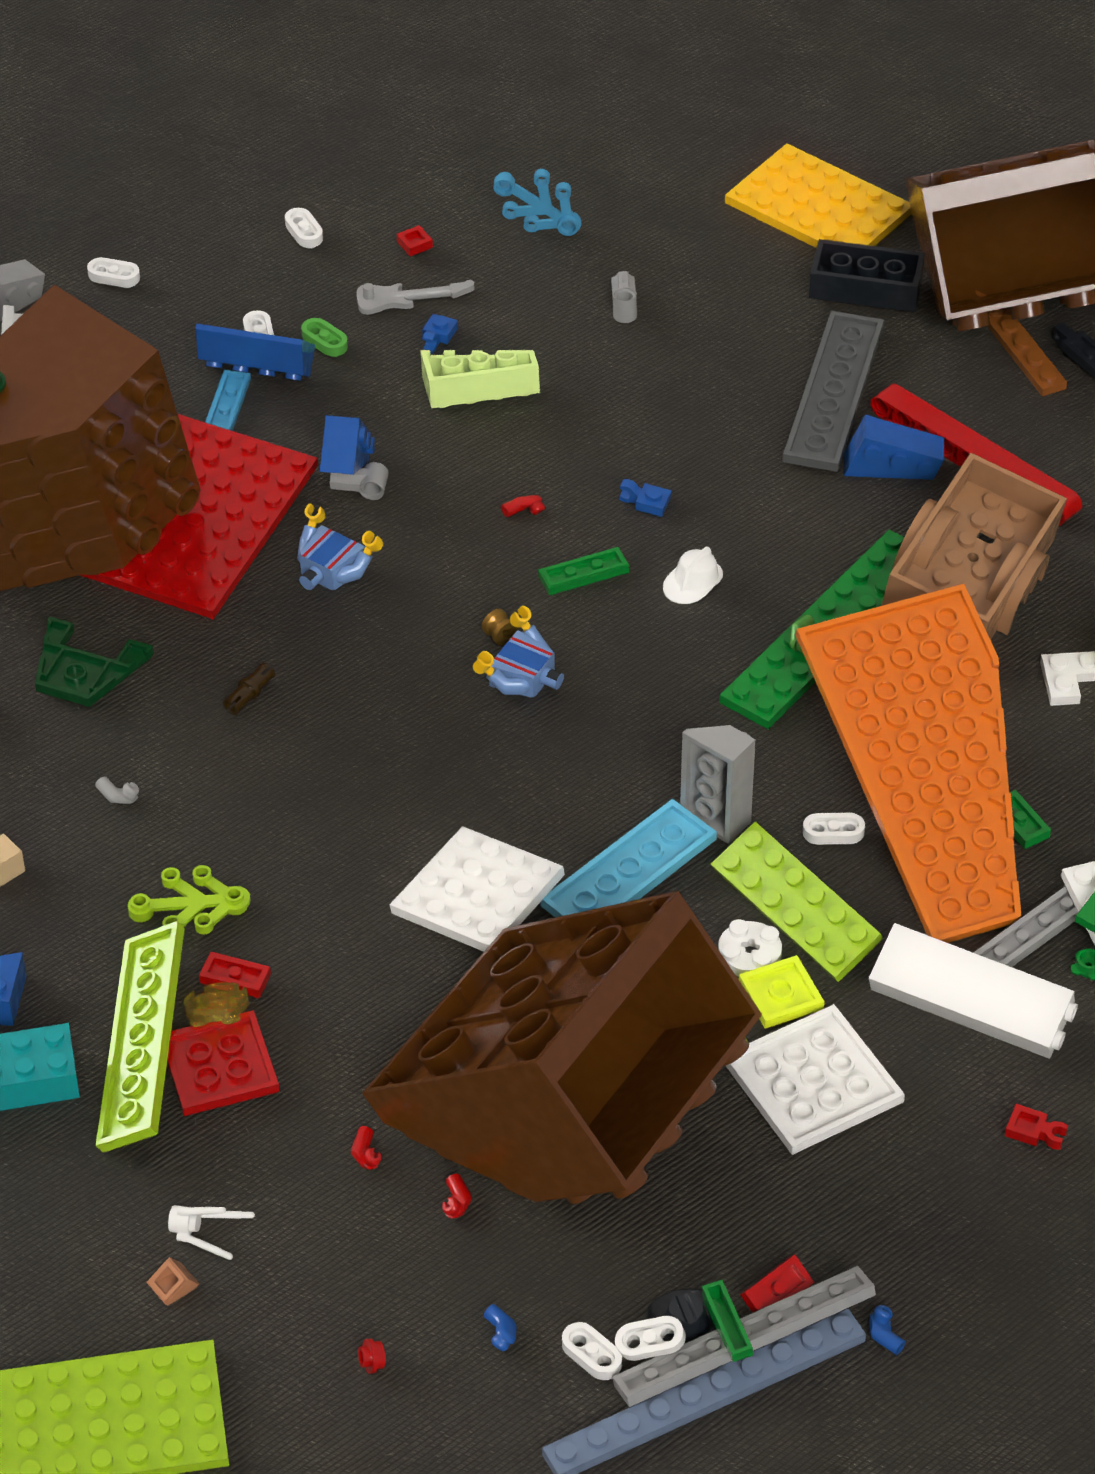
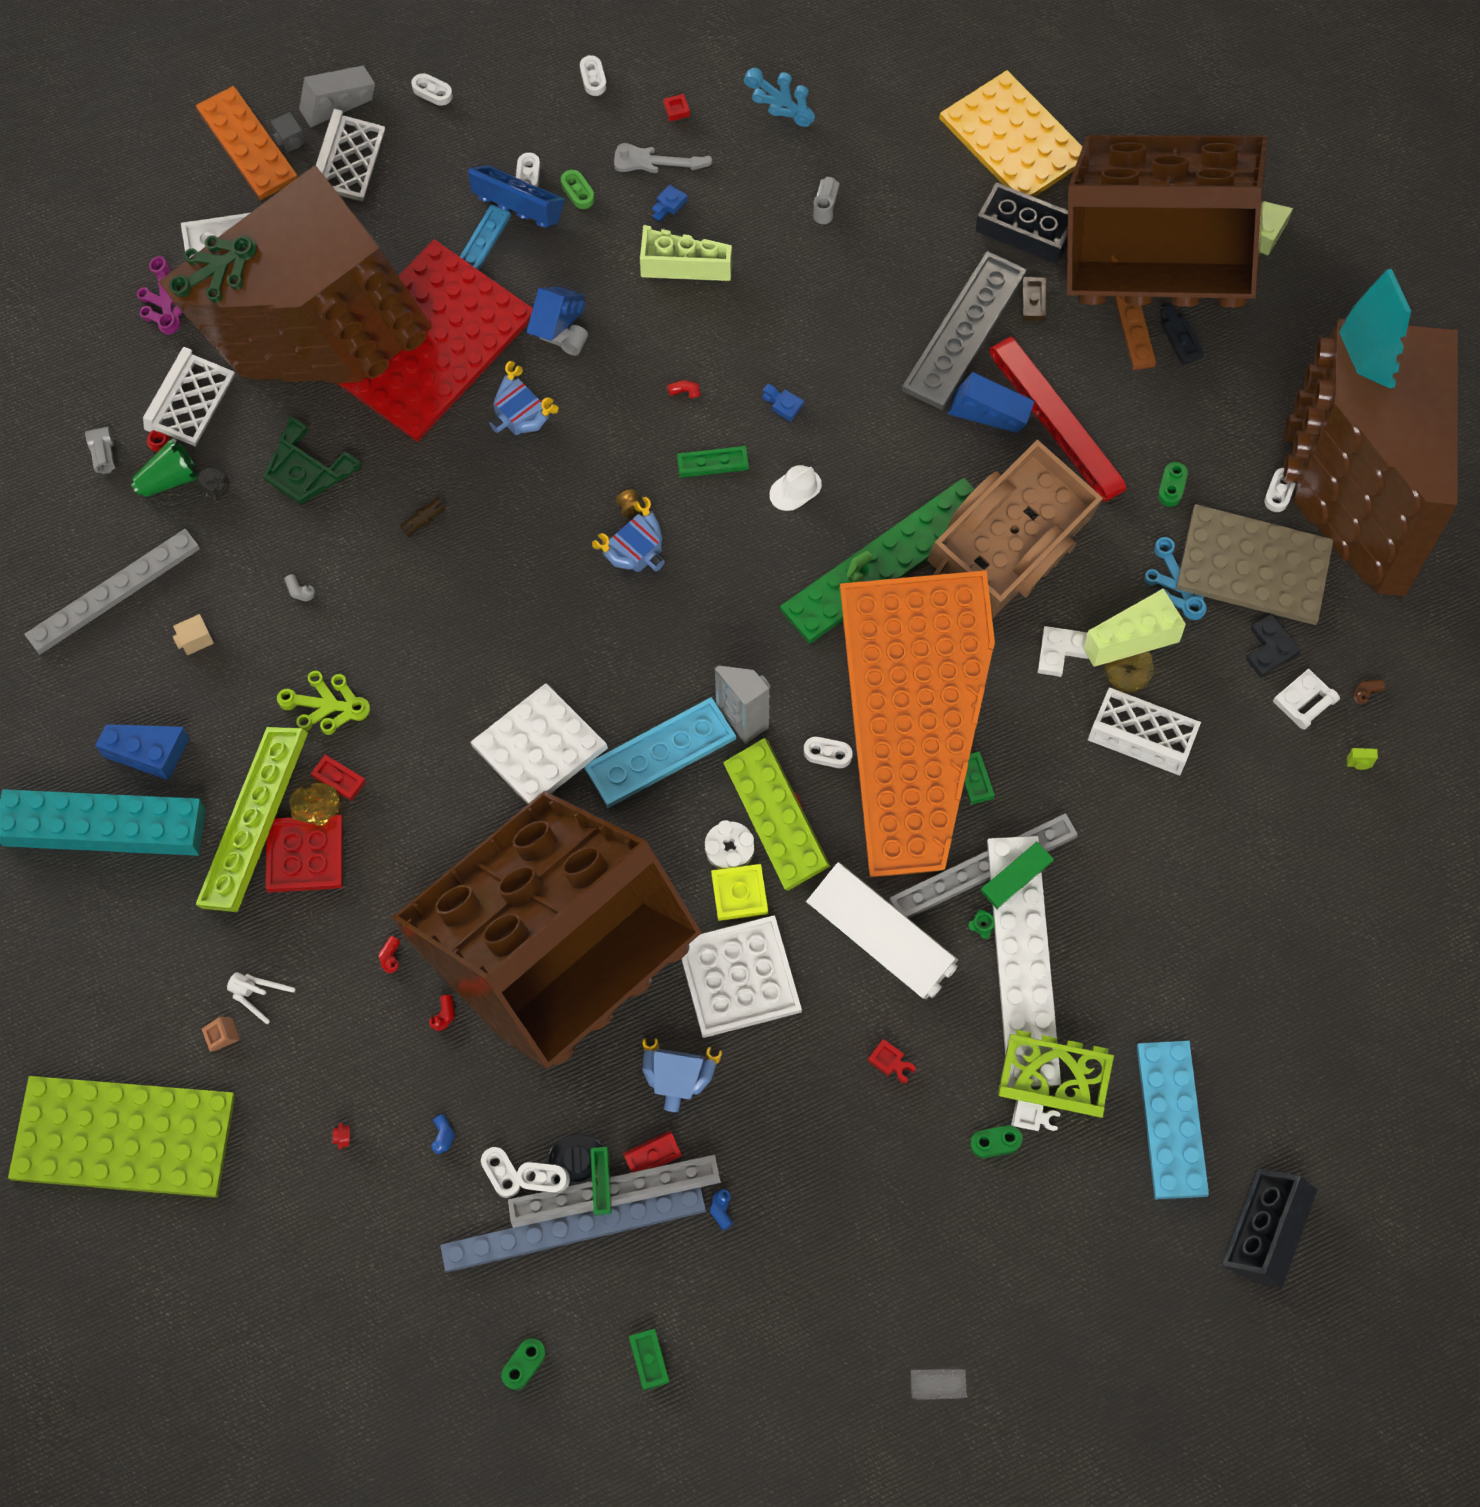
camera: 15 degrees right, 20 degrees up
(775, 1192) = (677, 1073): none -> medium blue torso
(902, 347) = (1033, 299): none -> plate

